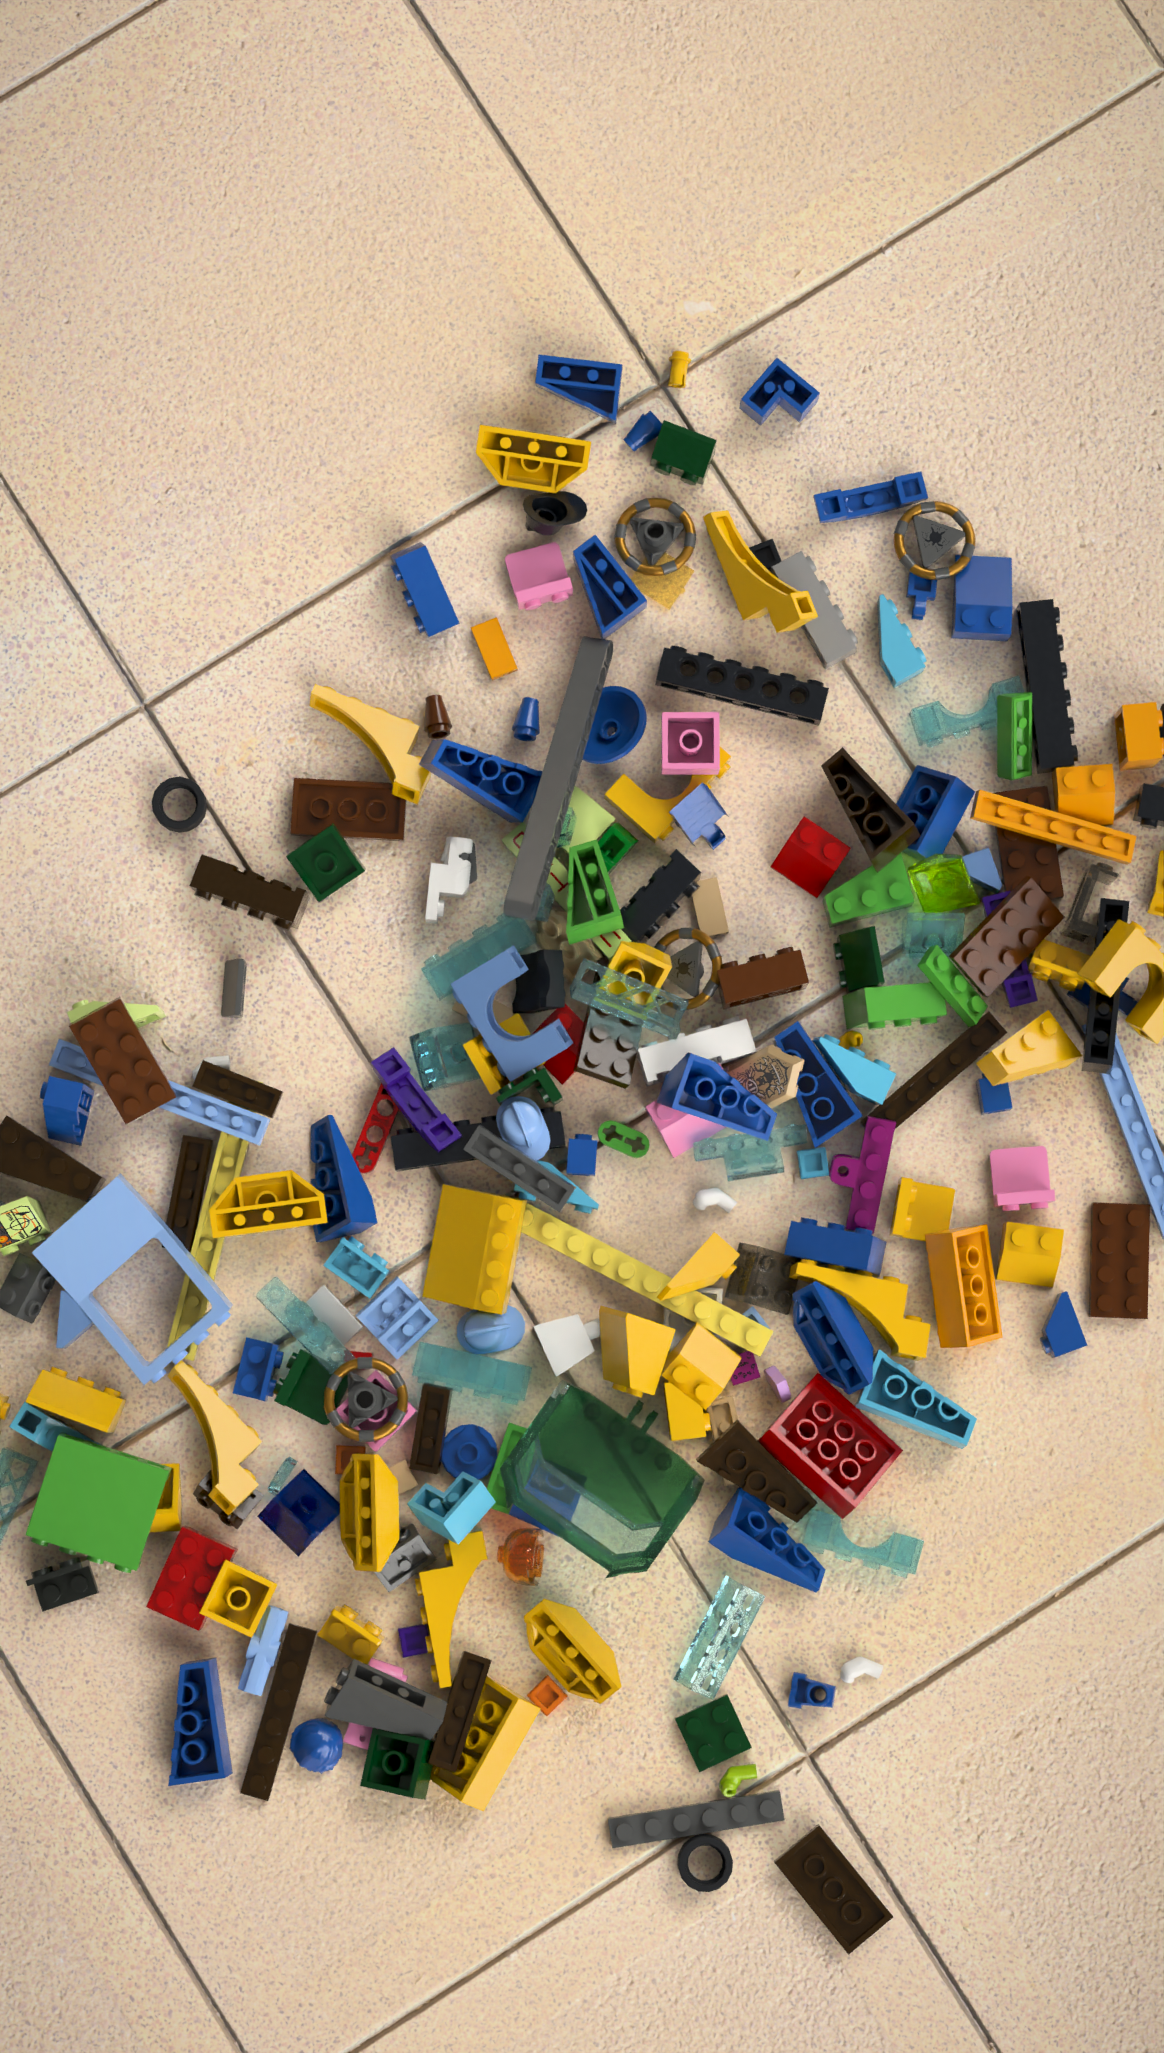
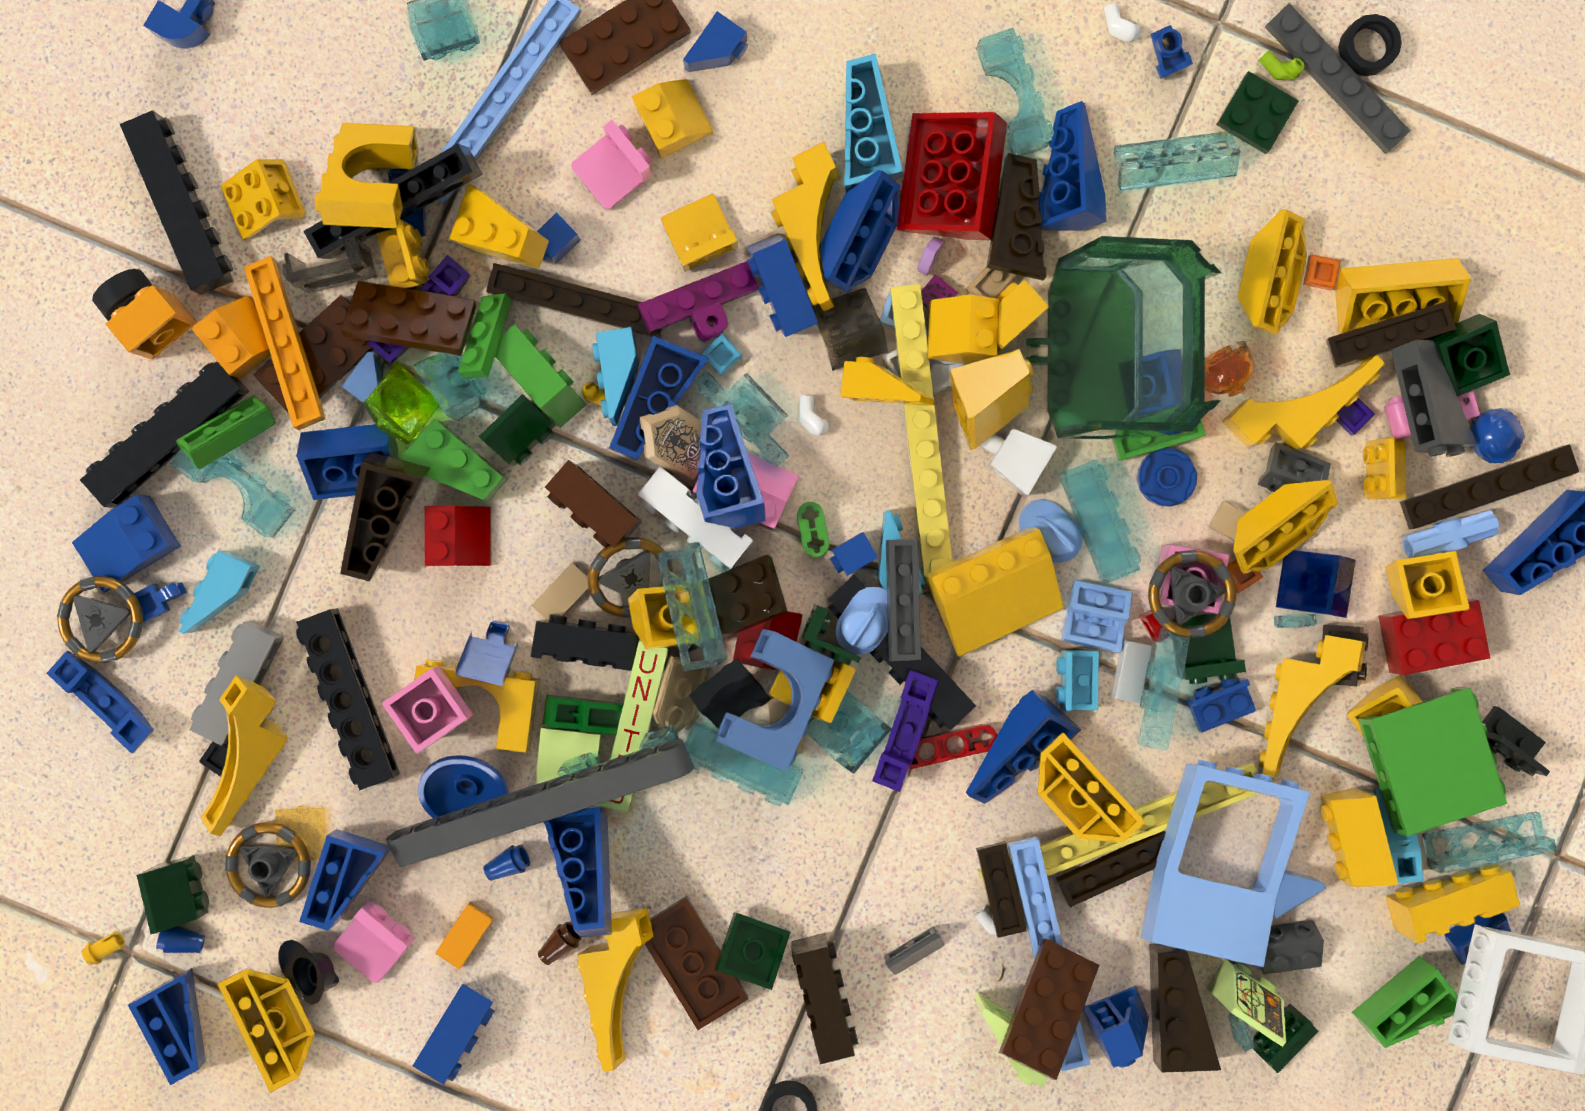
camera: 125 degrees left, 5 degrees up
(430, 1428) = (1171, 522): dark brown plate -> none
(452, 876) = (689, 833): white plate -> none
(452, 1511) = (1228, 452): medium azure brick -> none
(590, 895) = (626, 701): bright green wedge -> none
(779, 387) = (55, 846): blue brick -> none
(963, 1286) = (740, 152): light orange slope -> none

